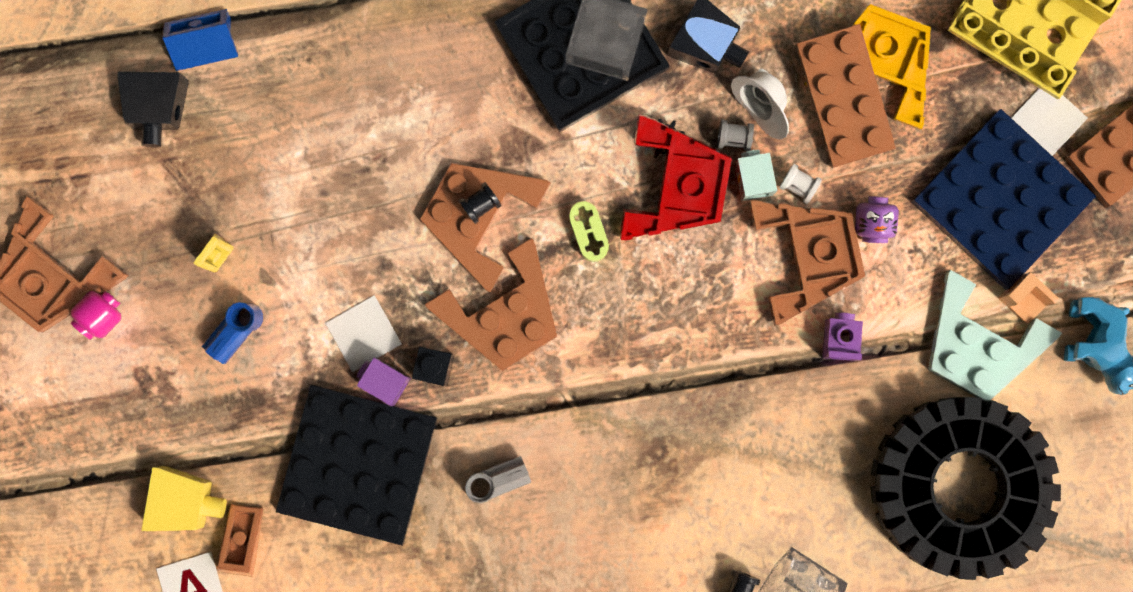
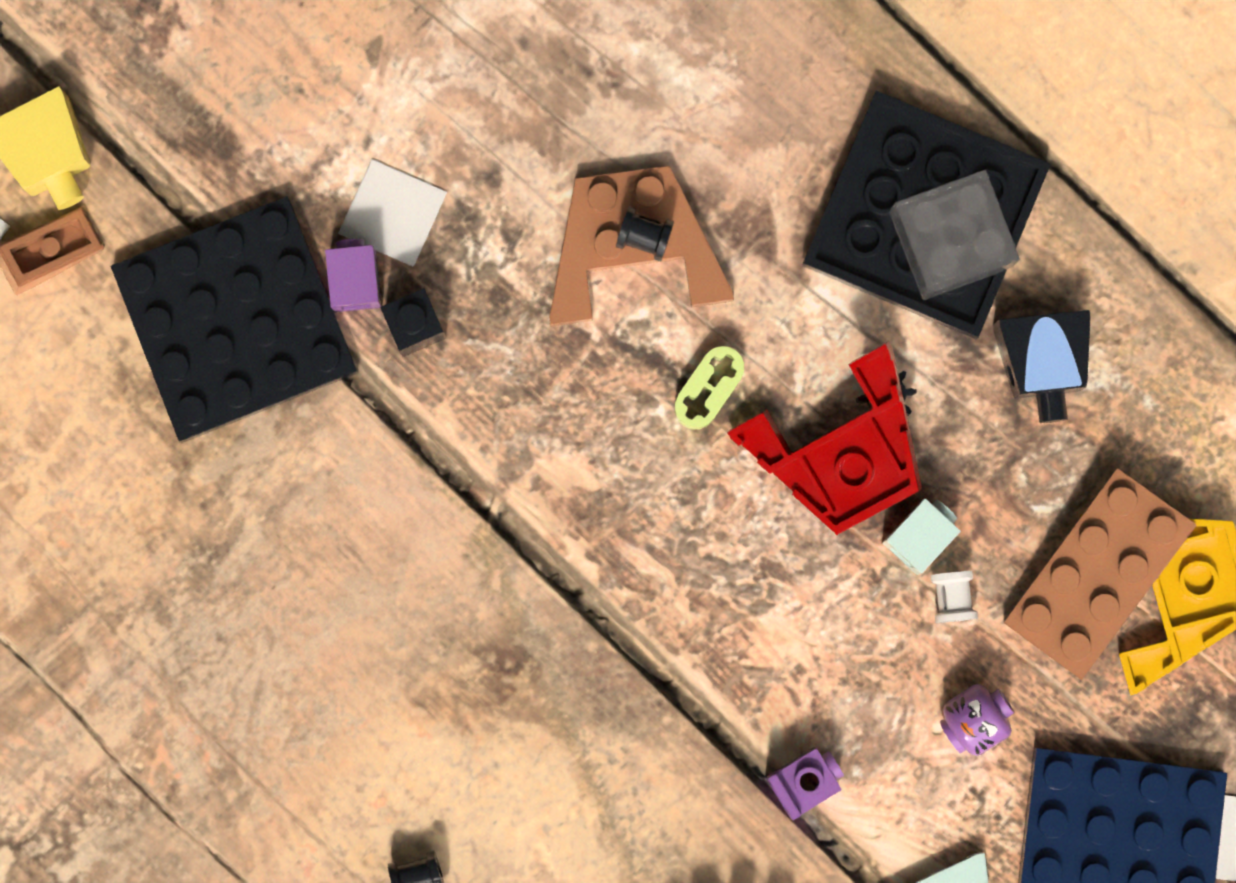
camera: 50 degrees right, 0 degrees up
(231, 333) = (279, 60): blue piece -> none
(501, 479) = (340, 499): light grey piece -> none
(510, 325) = (530, 377): nougat wing -> none
(735, 135) = (953, 476): light grey bush -> none
(764, 100) = (1023, 480): white piece -> none
(823, 252) = (892, 684): nougat wing -> none

